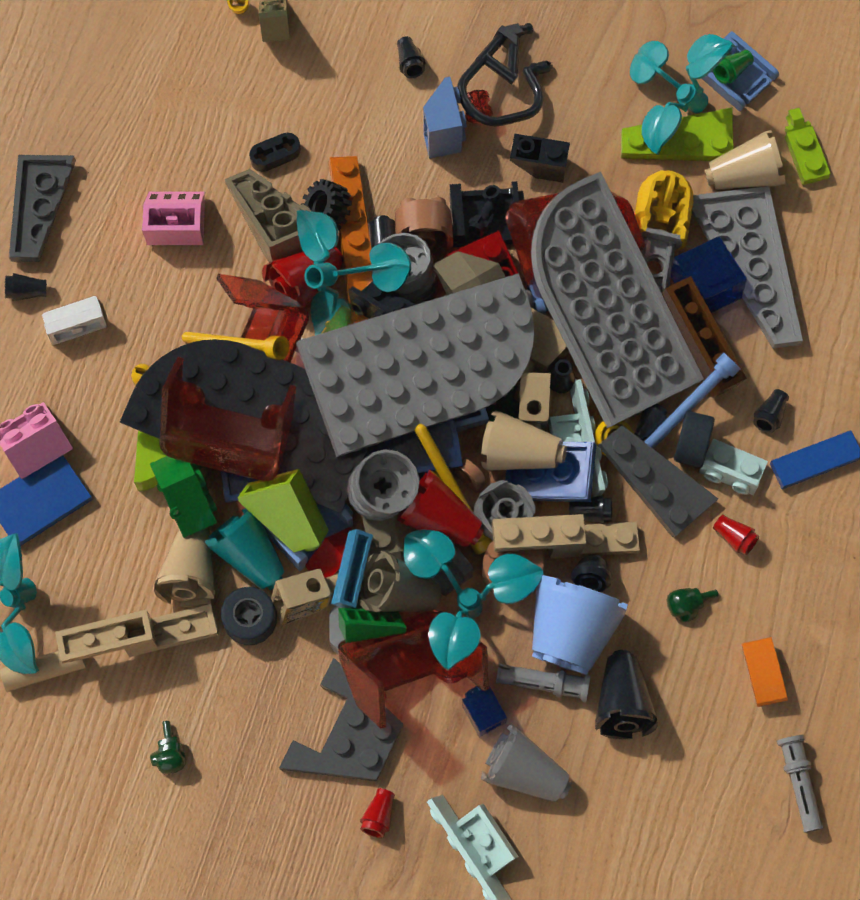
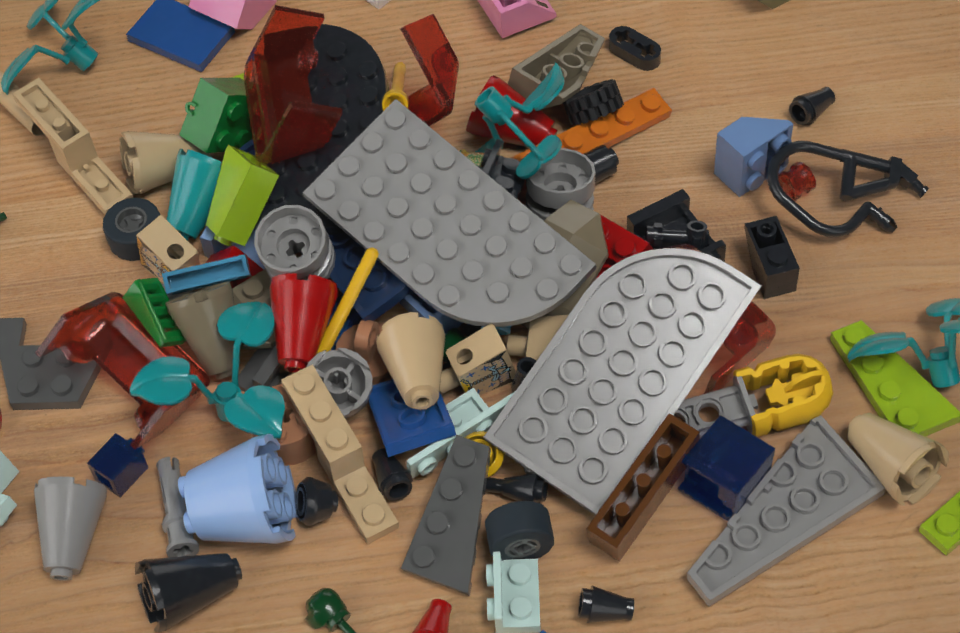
camera: 70 degrees right, 15 degrees down
(428, 220) = (622, 187): nougat brick -> none
(723, 369) = (610, 513): medium blue piece -> none

